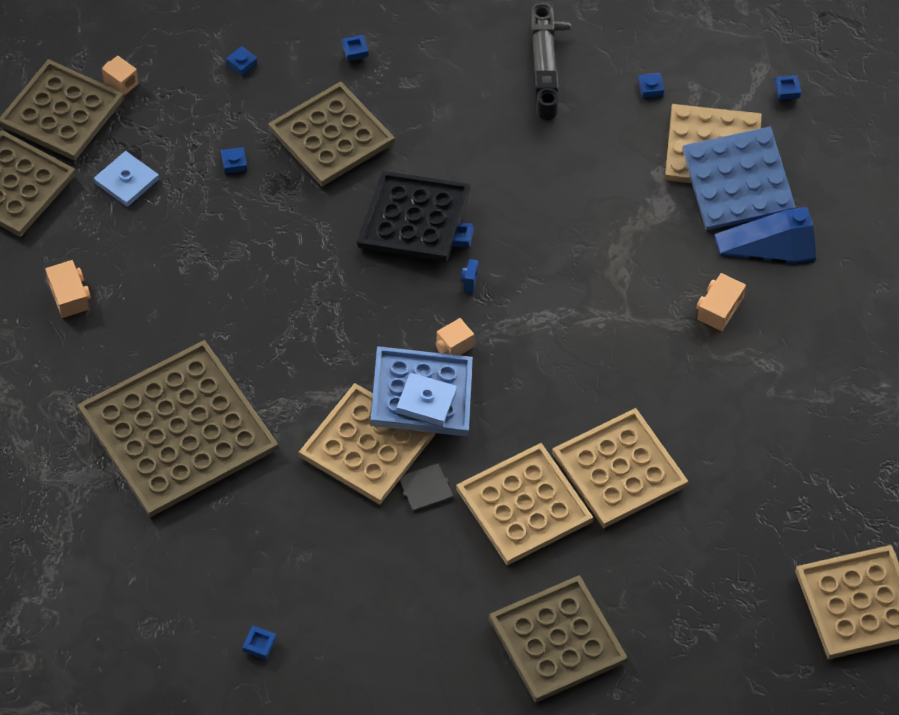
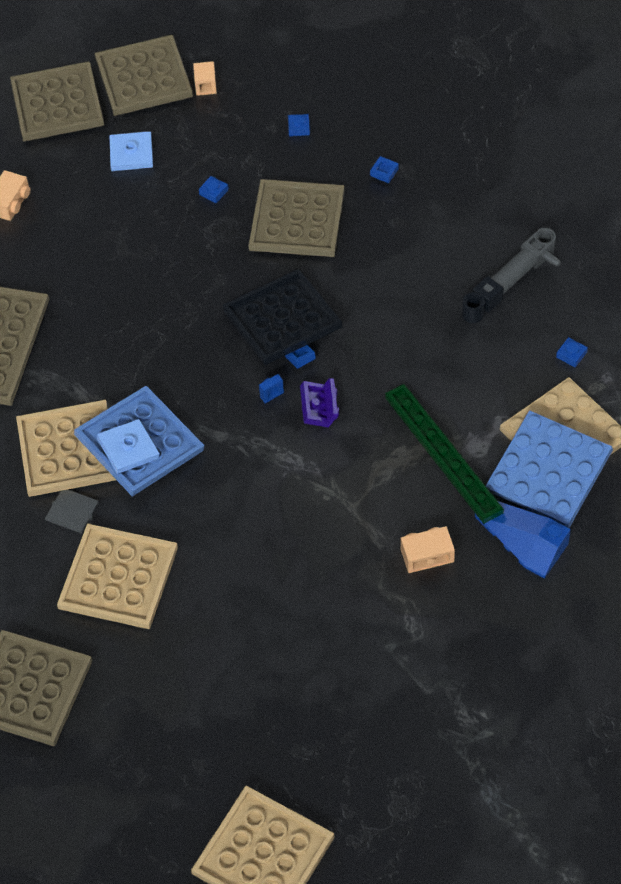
camera: 50 degrees right, 0 degrees up
(455, 338) = (207, 423): light nougat brick -> none
(520, 257) = (319, 403): none -> dark purple bracket
(619, 467) = (211, 607): tan plate -> none
(650, 225) = (444, 454): none -> dark green tile

